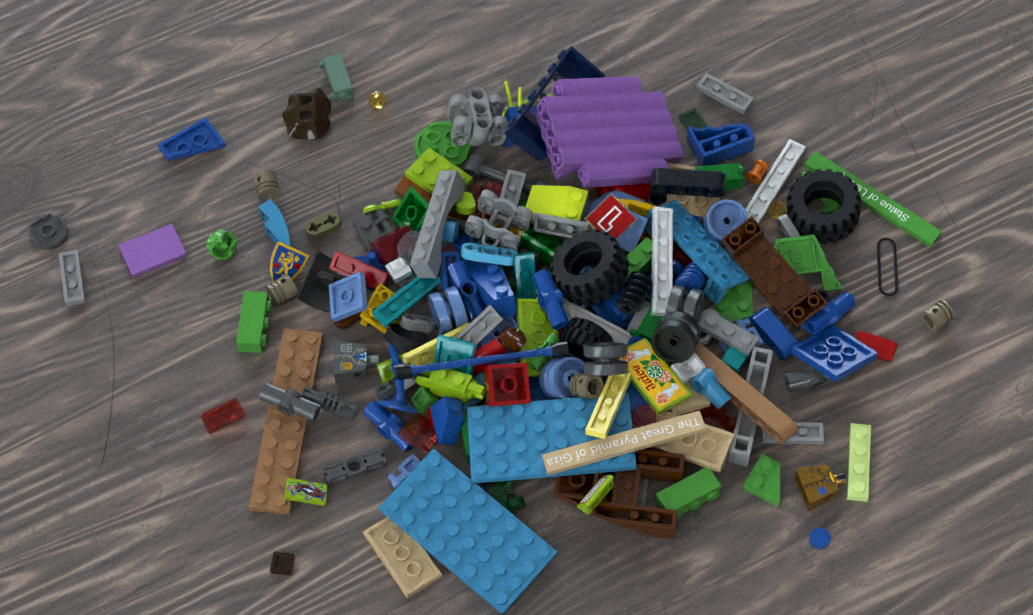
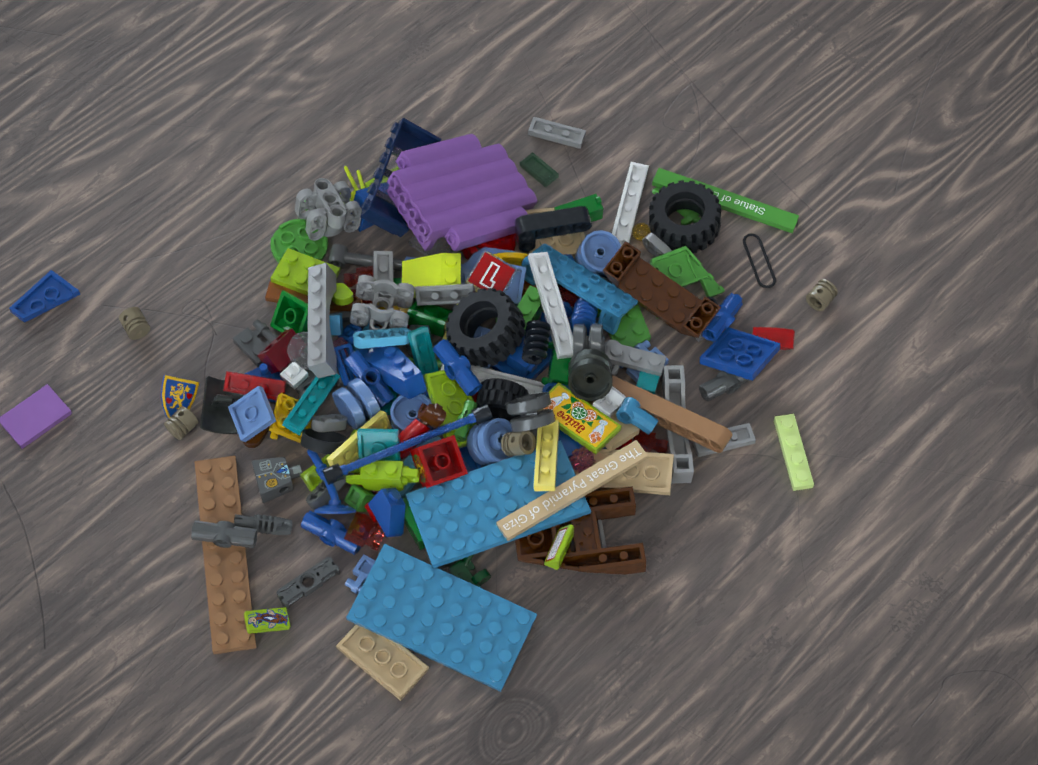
camera: 20 degrees left, 0 degrees up
(222, 244) = (106, 392): bright green piece -> none
(222, 415) = (157, 565): clear red plate -> none
(253, 322) = (162, 462): bright green brick -> none
(274, 222) = (153, 358): dark azure slope -> none
(282, 563) = (263, 699): dark brown tile -> none
(307, 129) = (158, 258): dark brown piece -> none
(323, 225) = (203, 350): olive beam -> none
(337, 77) = (174, 201): sand green brick -> none
(377, 100) = (220, 214): clear yellow plate -> none
(385, 205) = (259, 315): lime piece -> none
(481, 326) = (397, 410): light grey plate -> none
(639, 316) = (544, 367): light grey beam -> none
(689, 492) = (645, 522): bright green brick -> none
(720, 143) = (568, 181): blue wedge -> none
(757, 172) = (611, 199): orange bush -> none
(765, 480) = (712, 492): bright green wing -> none
(773, 332) = (675, 348): blue beam -> none
(818, 485) = (763, 483): pearl gold torso -> none
(819, 538) = (781, 534): blue tile -> none

